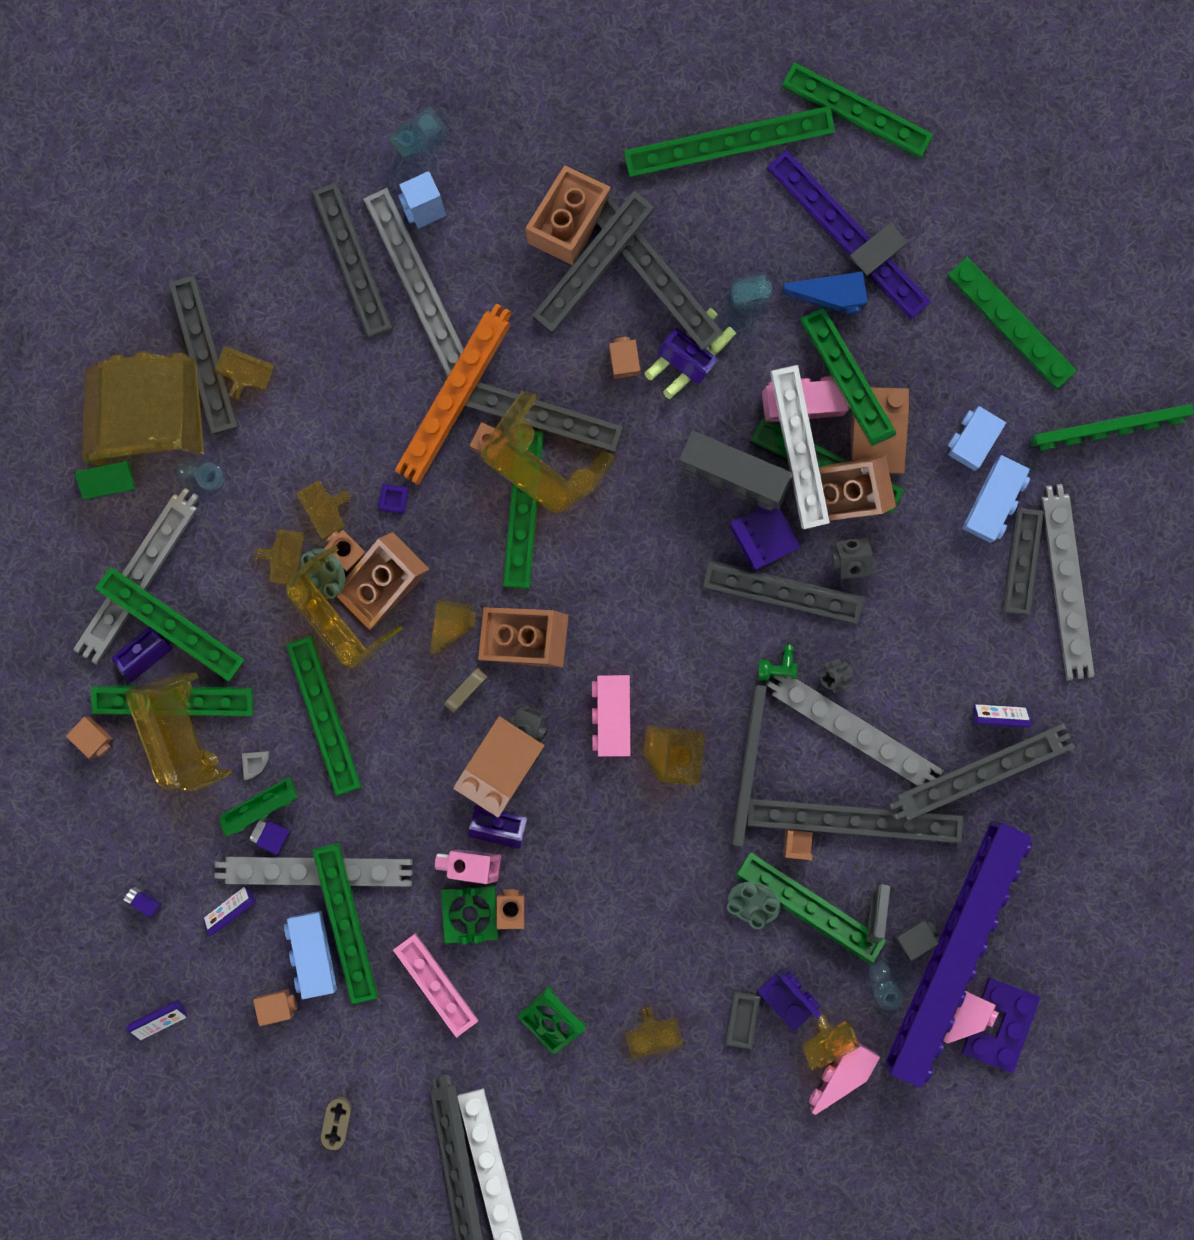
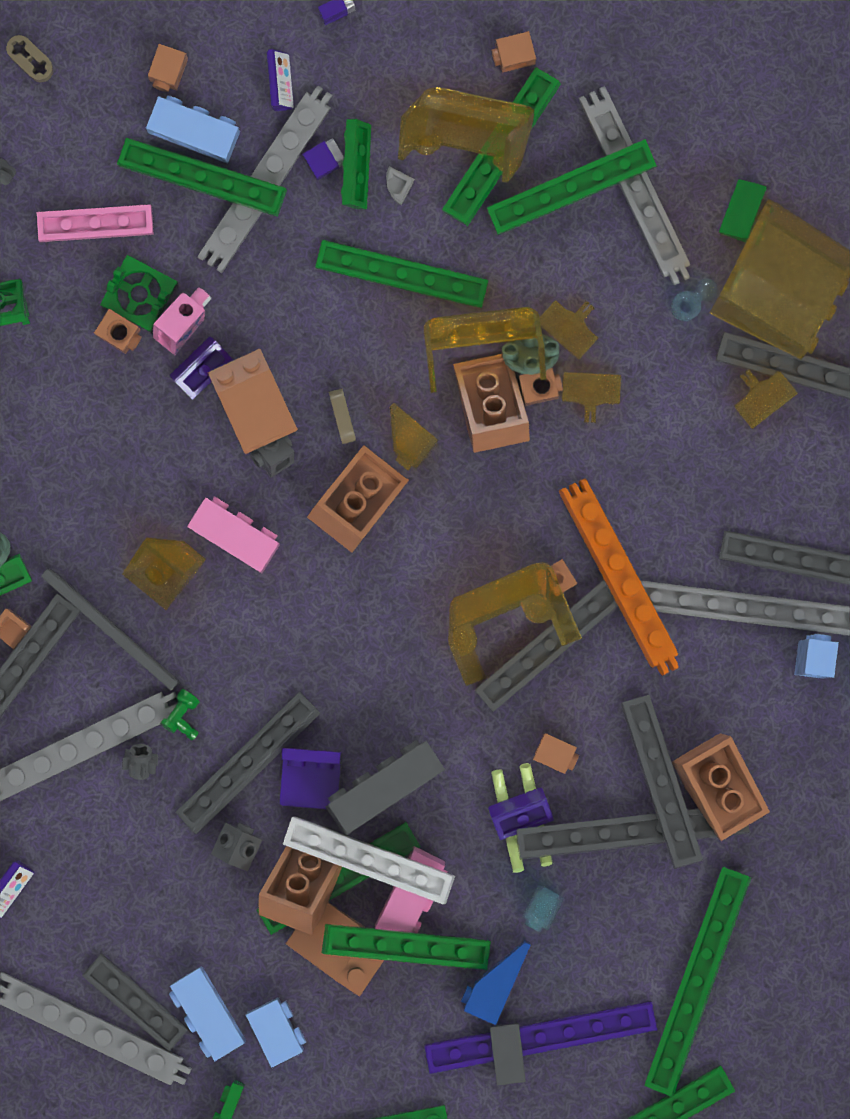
camera: 125 degrees right, 0 degrees up
(141, 654) = (563, 144): dark purple slope -> none
(393, 498) = (560, 460): dark purple tile -> none
(521, 530) = (459, 561): green tile -> none

